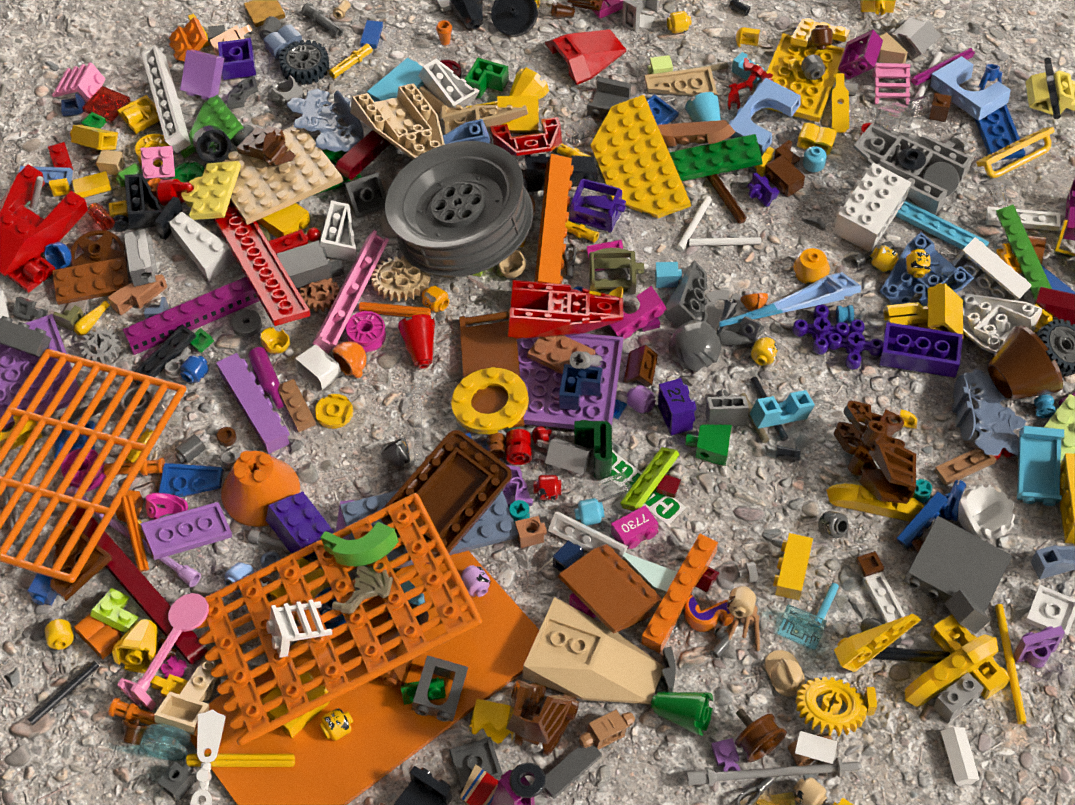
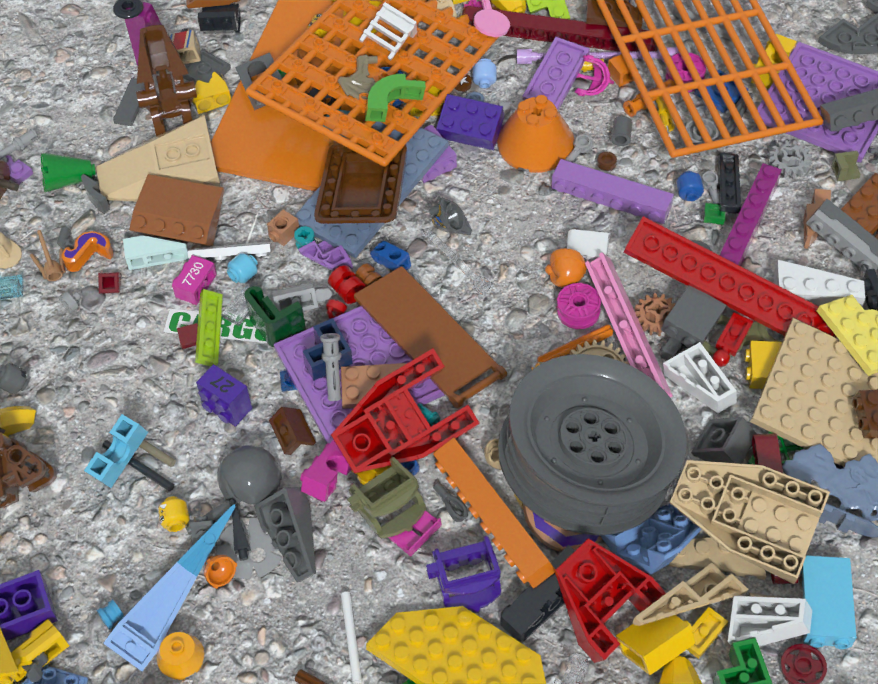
camera: 145 degrees right, 0 degrees up
(86, 323) = (828, 175): yellow piece -> none
(134, 532) = (597, 50): orange axle -> none
(156, 309) = (778, 216): sand blue panel -> none
(189, 479) = (599, 112): blue wing -> none
(265, 374) = (618, 215): magenta piece -> none
(275, 152) = (844, 399): reddish brown brick -> none
(296, 405) = (576, 215): medium nougat plate -> none
(334, 411) = (539, 230): yellow tile -> none
(419, 338) = (522, 322): red cone -> none
(475, 580) = (294, 160): lavender head -> none
(490, 423) = (395, 322): yellow plate -> none
(547, 487) = (294, 267): red head -> none
(567, 555) = (234, 226): dark blue brick -> none
(568, 151) = (552, 641): yellow pin -> none
(581, 231) = (456, 542): yellow pin -> none
(606, 729) = (117, 131): medium nougat piece -> none
(641, 399) = (266, 391): medium lavender head -> none
(667, 274) = (333, 544): medium azure brick -> none
(668, 611) = (116, 270): orange arch -> none
(711, 443) = (171, 392): green torso -> none
(725, 241) = (300, 634): white bar -> none
(726, 410) = (175, 426): dark grey brick -> none
(741, 602) = (55, 253): tan head -> none
(788, 453) = (92, 428): black pin -> none
(792, 566) = (32, 327): yellow brick -> none
(820, 329) = (118, 561): dark purple gear -> none
(855, 344) = (74, 563): dark purple gear -> none

